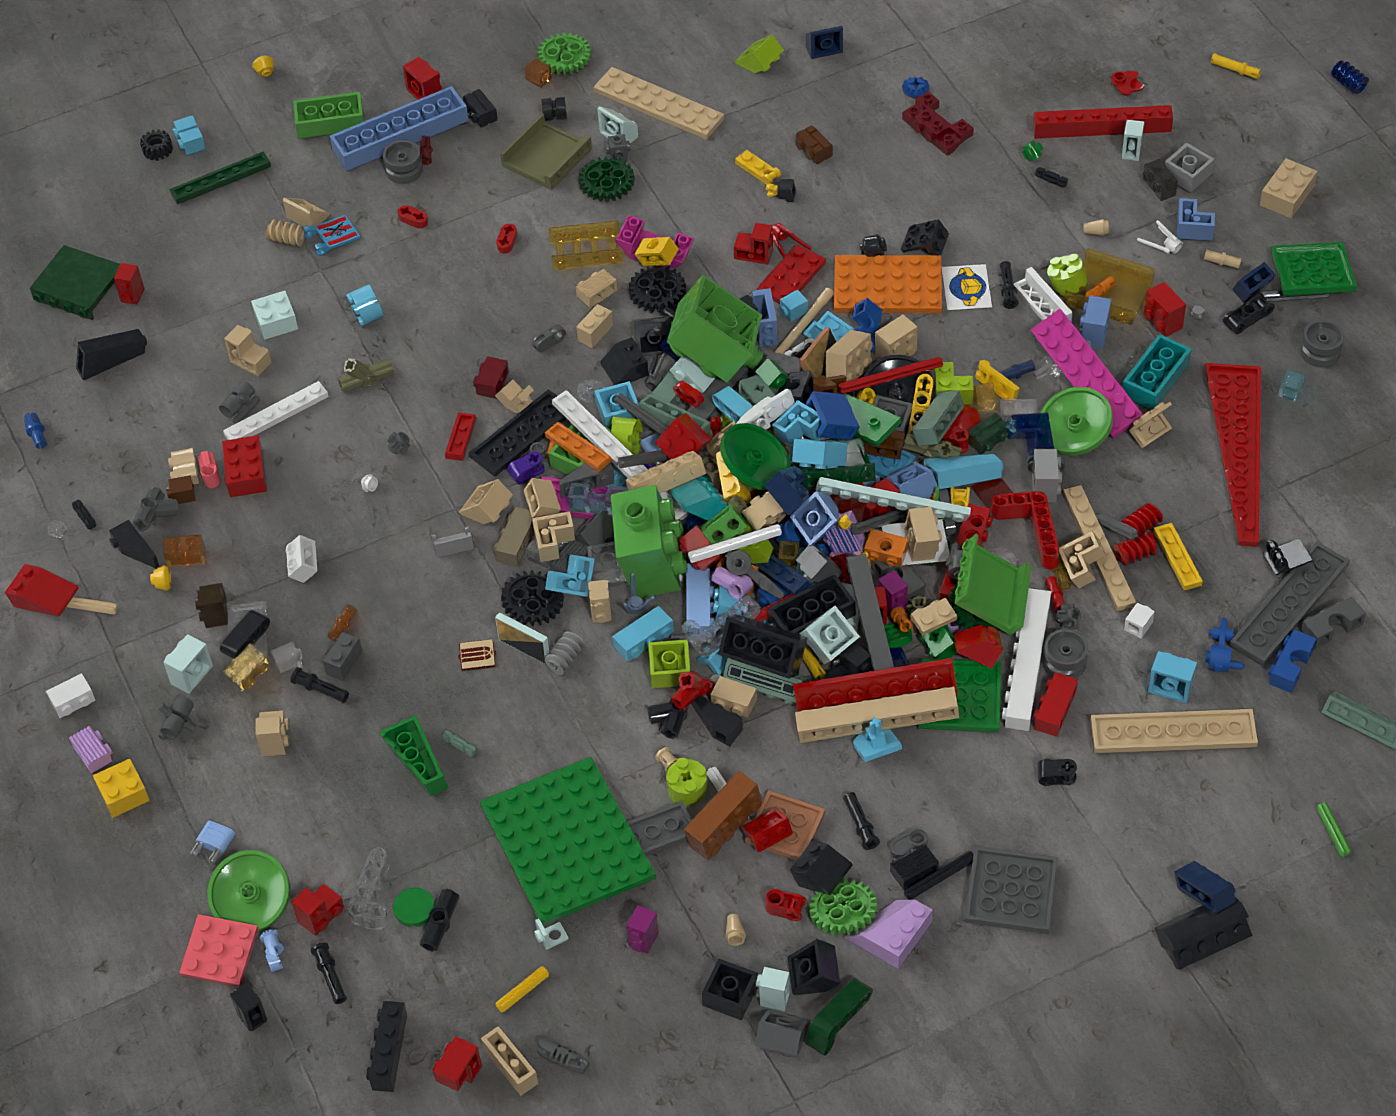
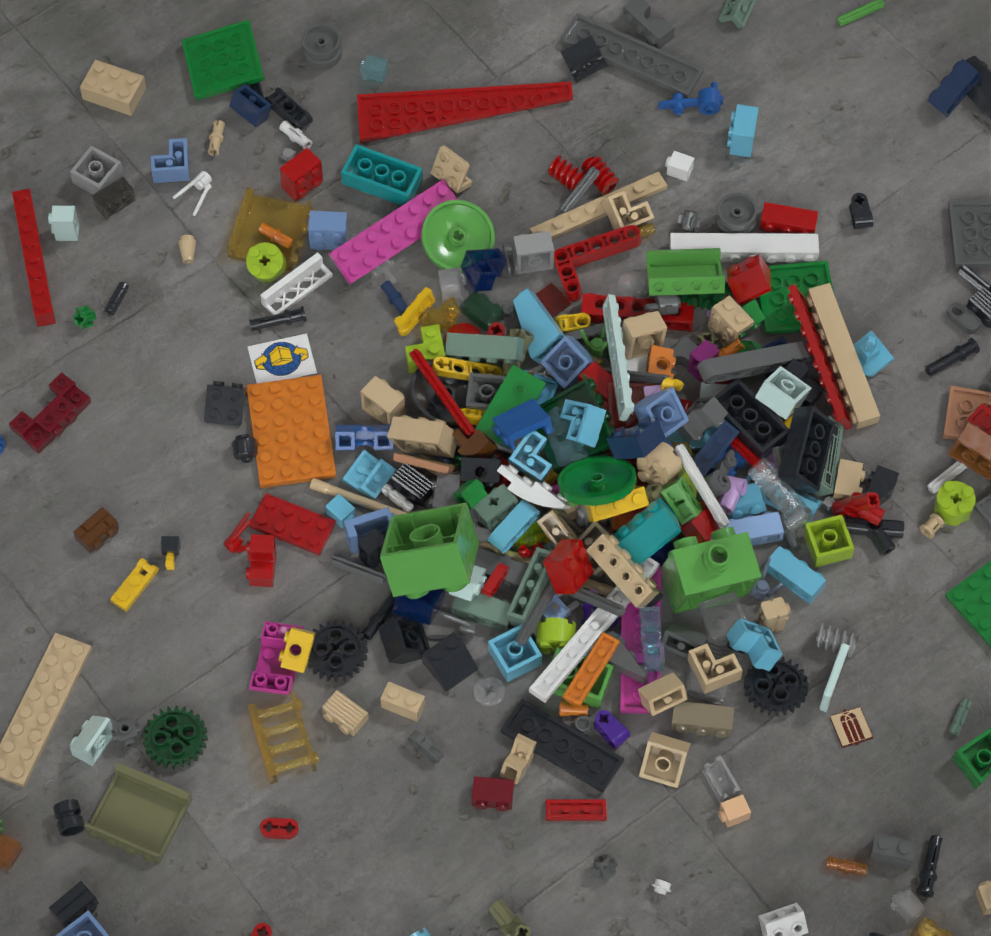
camera: 105 degrees left, 10 degrees up
(420, 545) = (734, 811): none -> light nougat brick
(1056, 592) = (663, 235): red pin -> none
(1173, 731) = (793, 131): tan plate -> none
(1177, 556) = (599, 143): yellow plate -> none
(1216, 318) = (295, 135): none -> white pin
(1297, 648) = (708, 55): blue arch -> none

